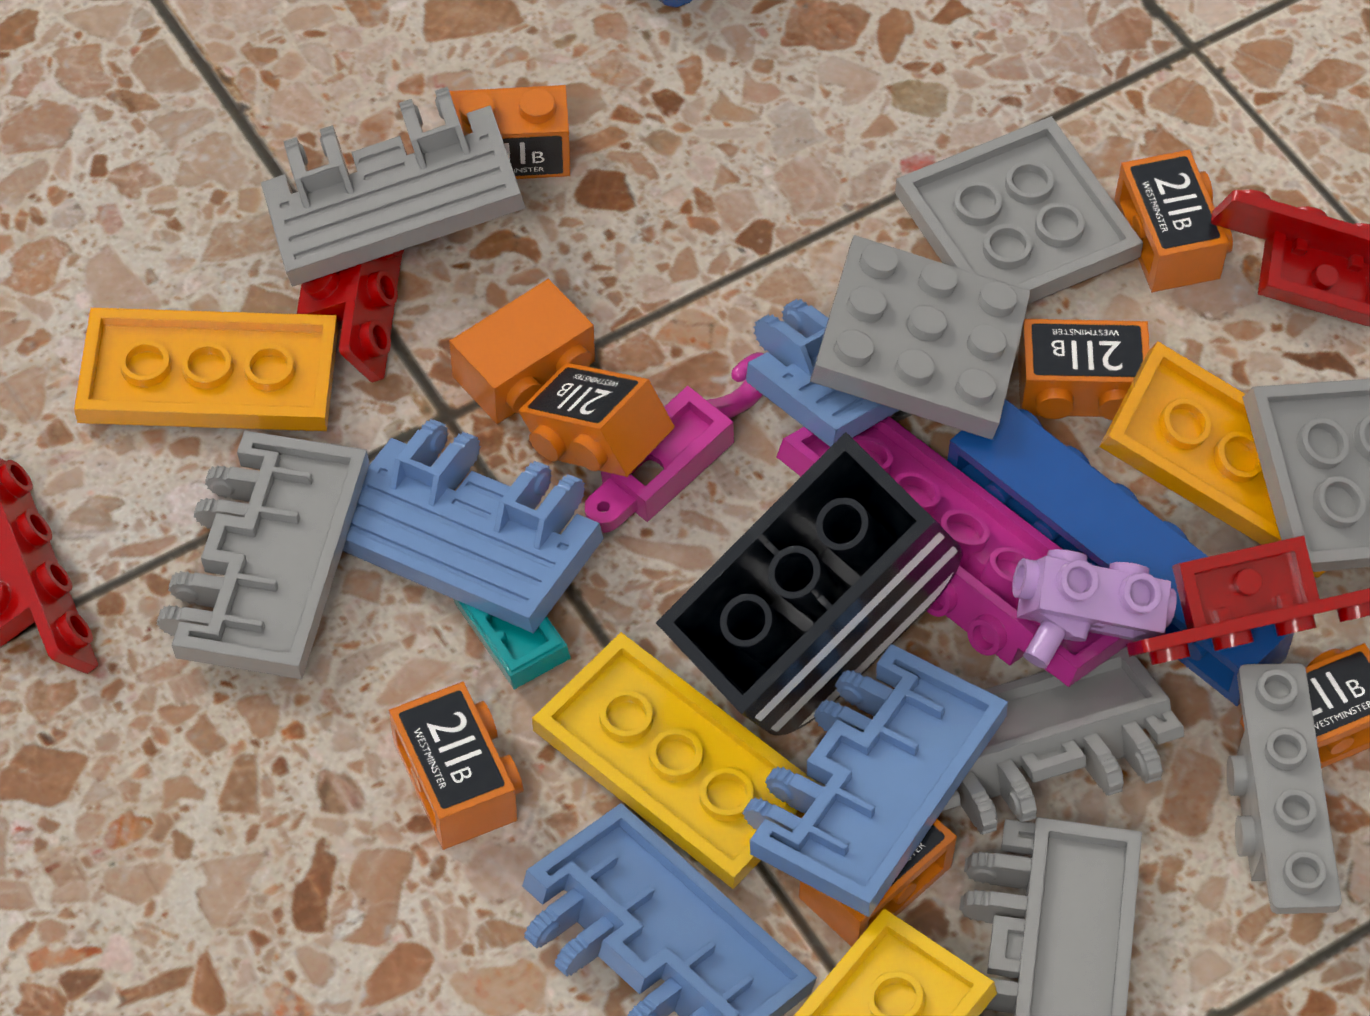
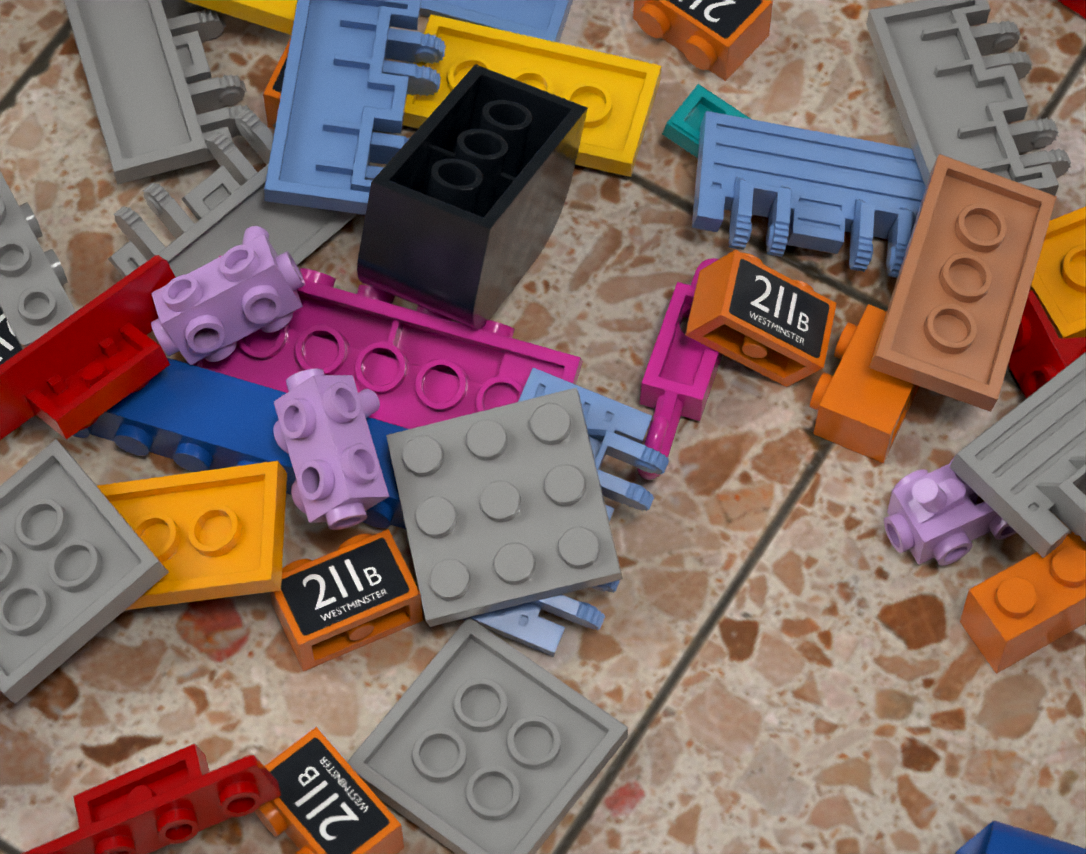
camera: 155 degrees right, 5 degrees up
(401, 354) = (963, 283): none -> nougat plate
(539, 236) = (939, 516): none -> lavender brick
(1054, 426) = (330, 447): none -> lavender brick

